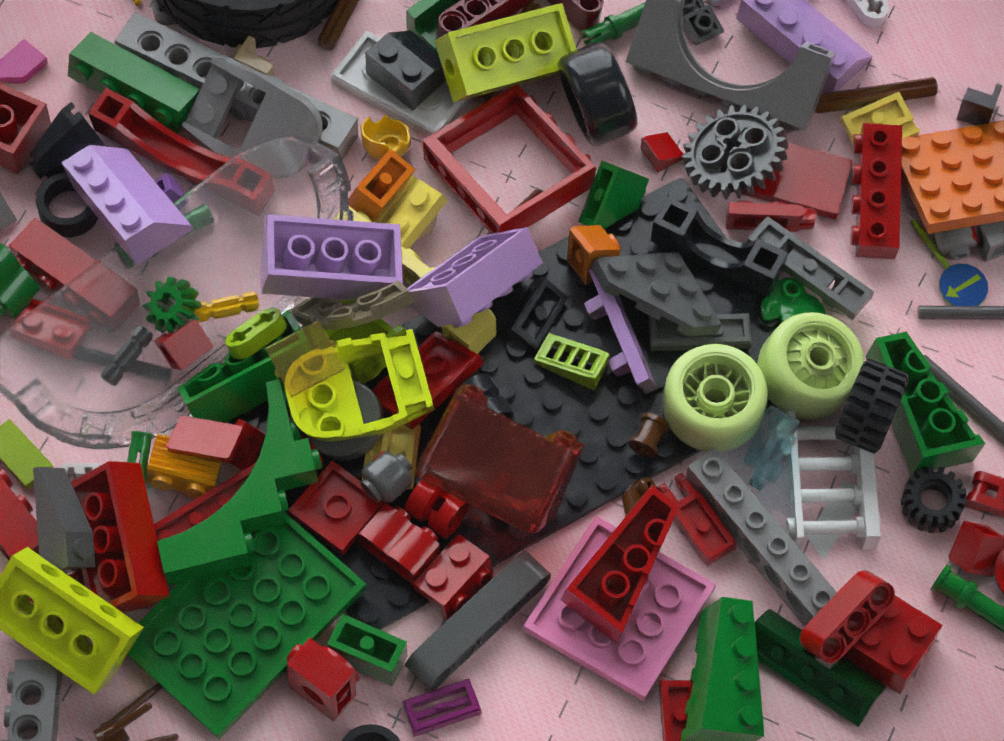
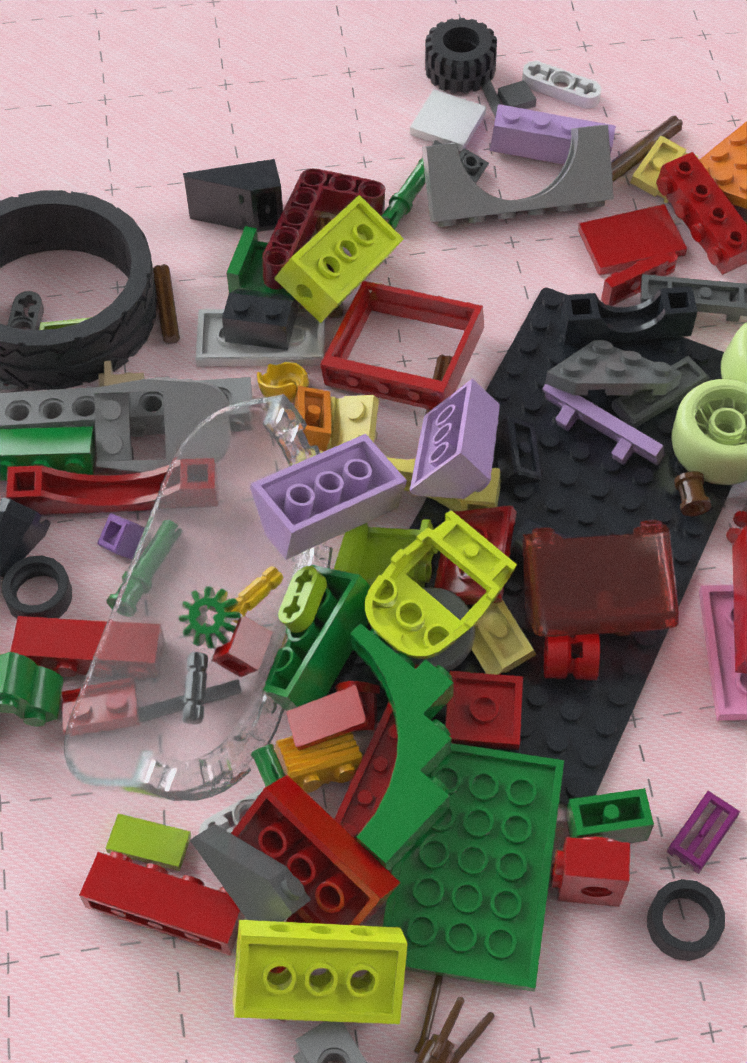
camera: 30 degrees left, 5 degrees down
(126, 200) = (99, 552): lavender slope -> none
(305, 358) = (374, 590): clear yellow piece -> none
(370, 307) = (392, 520): dark tan tile -> none
(386, 477) = (515, 654): dark grey head -> none
(399, 542) = (562, 707): red brick -> none
(455, 576) = (626, 708): red bracket -> none
(478, 620) = (676, 736): dark grey beam -> none
(577, 374) = (590, 458): lime slope -> none
(585, 245) = (529, 377): orange slope -> none
(598, 93) = (438, 250): black wheel -> none
(612, 195) = (507, 326): green slope -> none
(635, 492) = (716, 554): reddish brown arm -> none
(661, 150) = (511, 276): red slope -> none
(735, 152) = (598, 240): dark grey gear -> none
(785, 305) = (711, 334): green plate -> none
(978, 106) = (723, 120): black panel -> none

